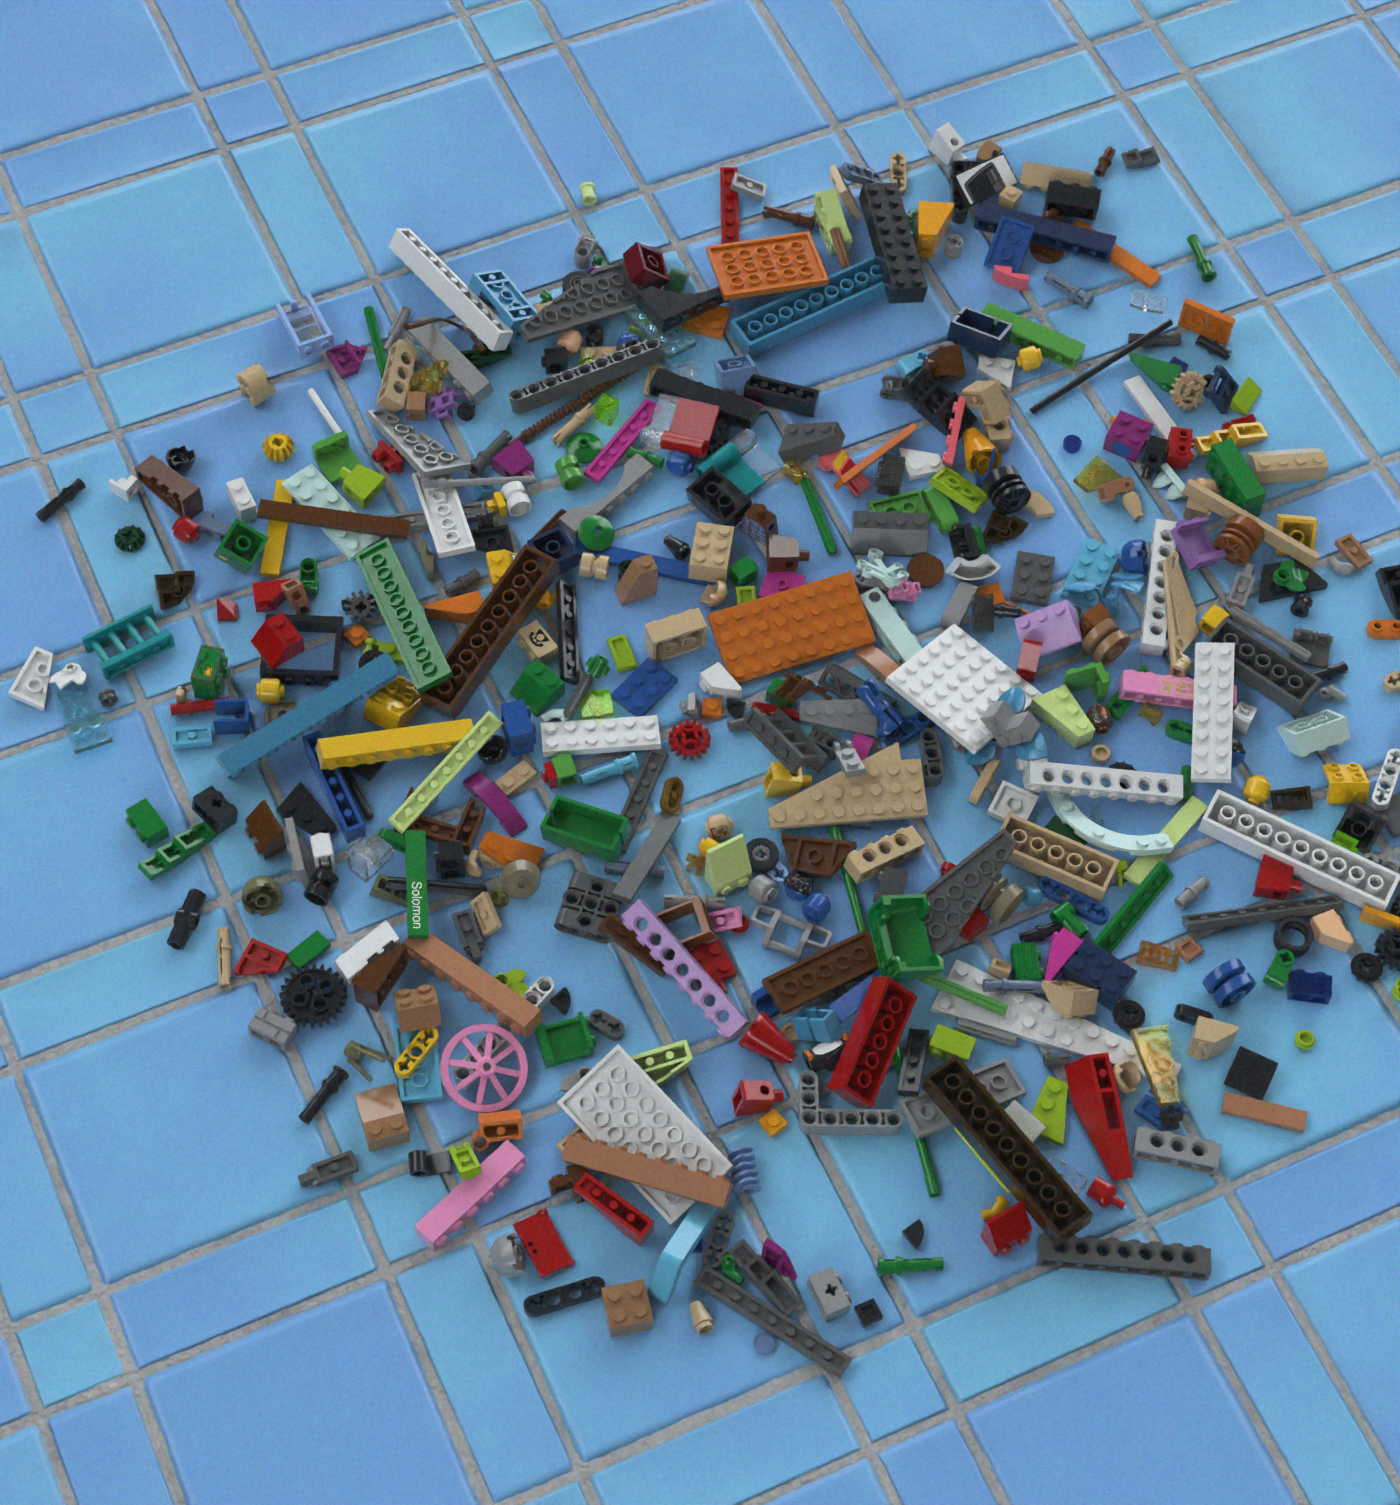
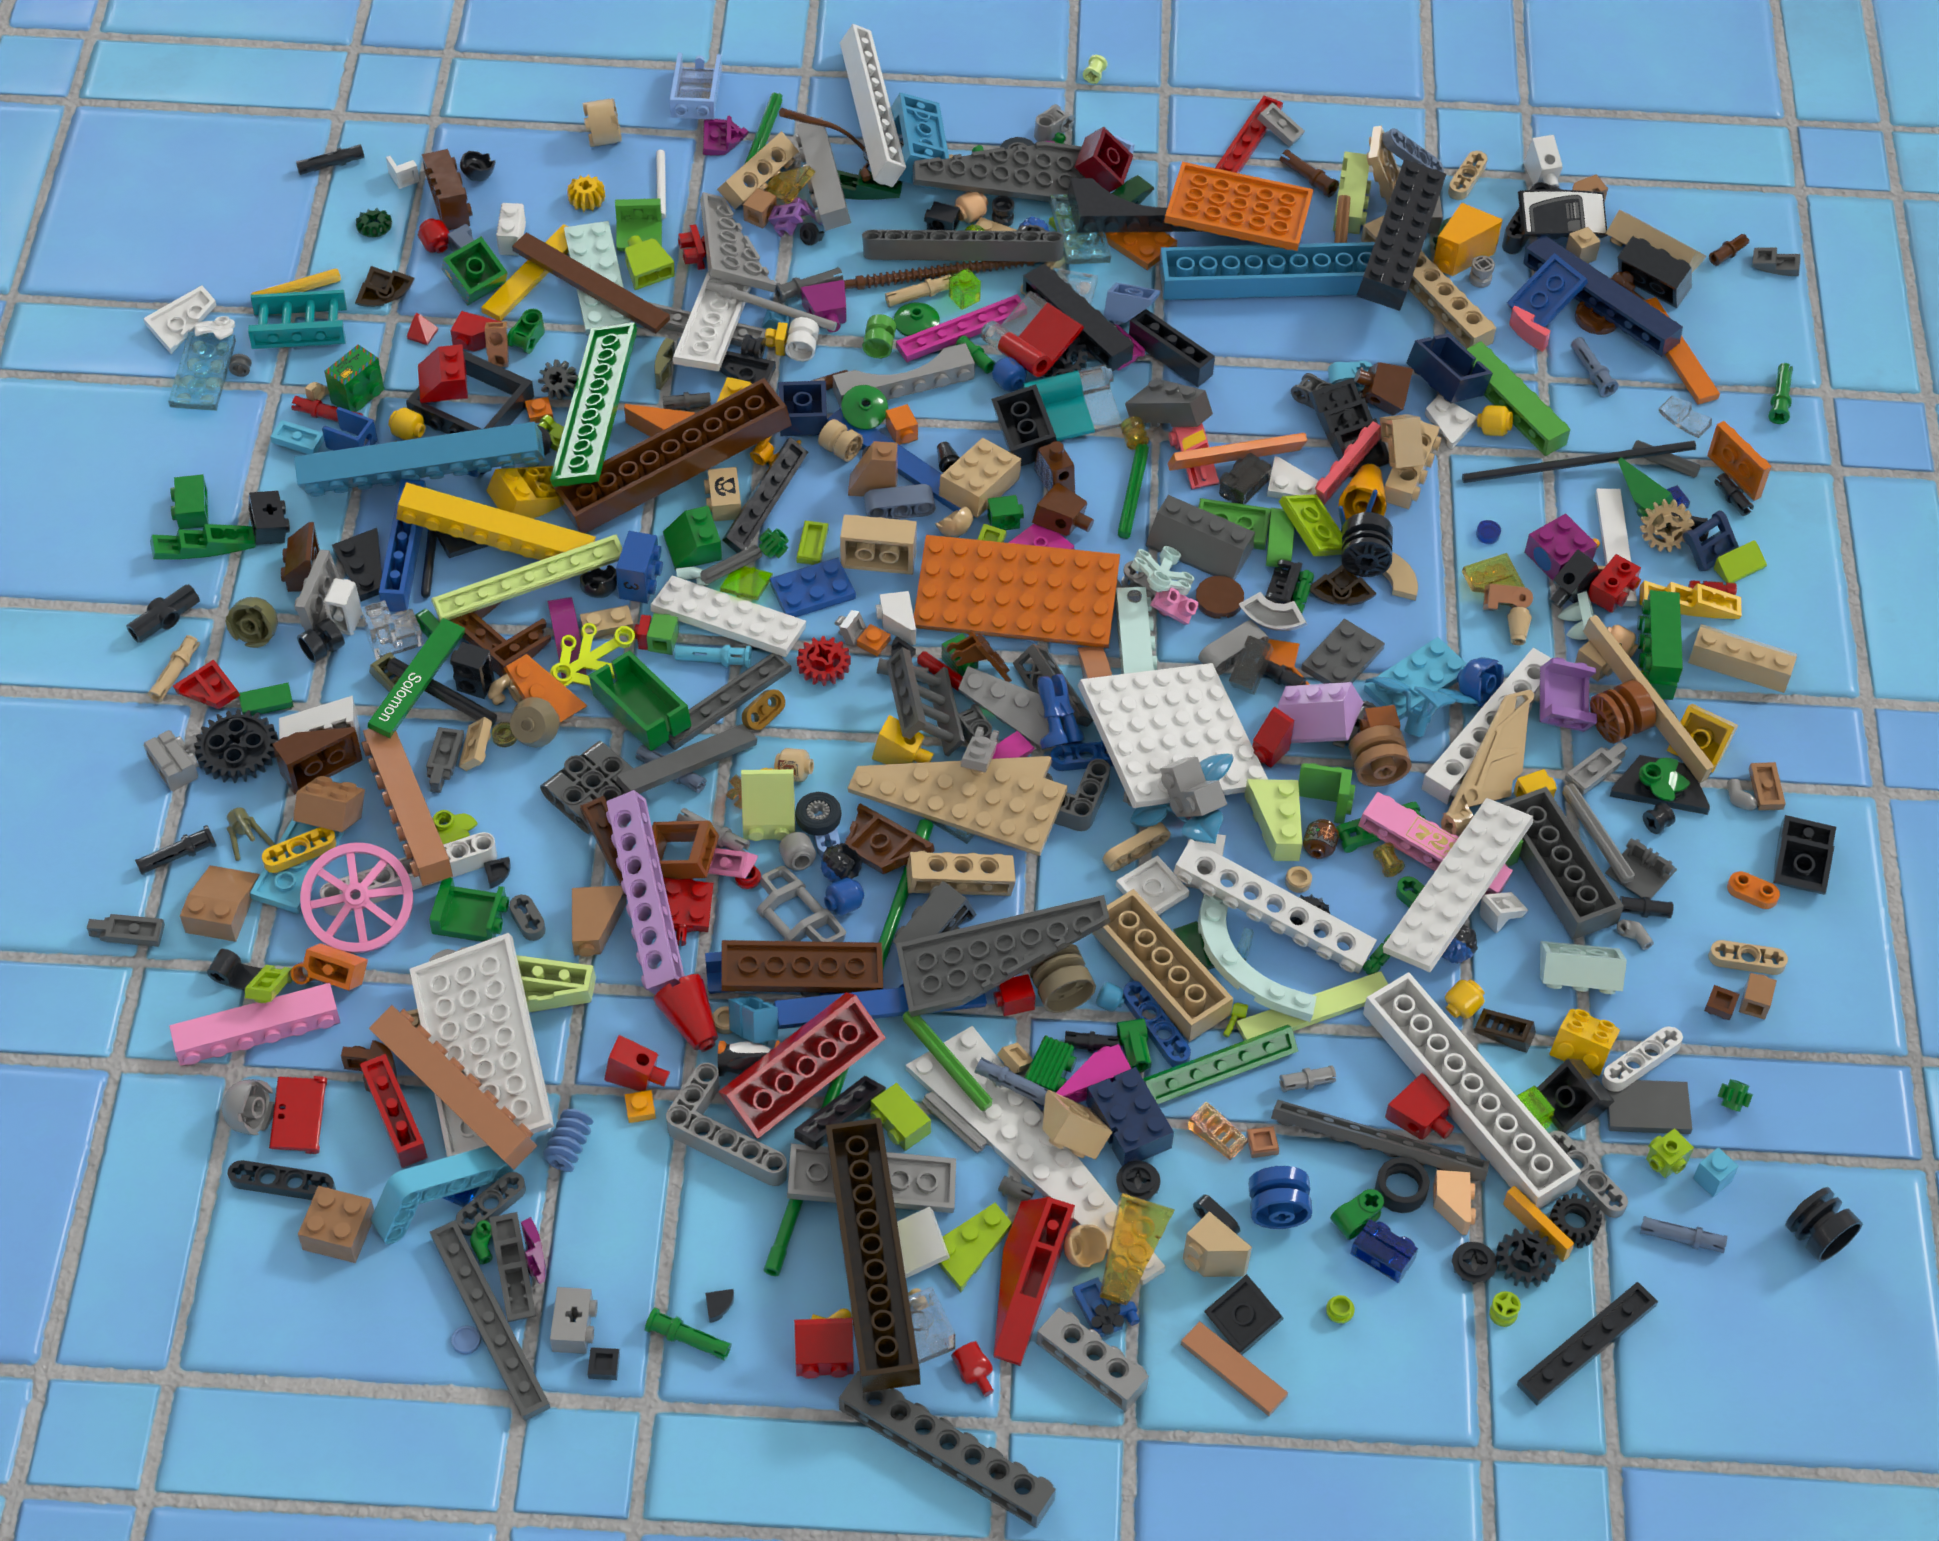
camera: 30 degrees right, 5 degrees down
(109, 612) = (304, 284): none -> yellow axle
(397, 325) = (791, 127): light grey axle -> none
(524, 813) = (586, 658): none -> neon yellow plant
(629, 535) = (902, 424): none -> orange brick
(654, 1003) = (594, 917): none -> medium nougat slope
(665, 596) = (900, 502): none -> sand blue beam
(701, 1318) = (411, 1279): tan cone -> none
(902, 938) = (910, 965): green windscreen -> none
(940, 278) = (1443, 298): none -> tan brick

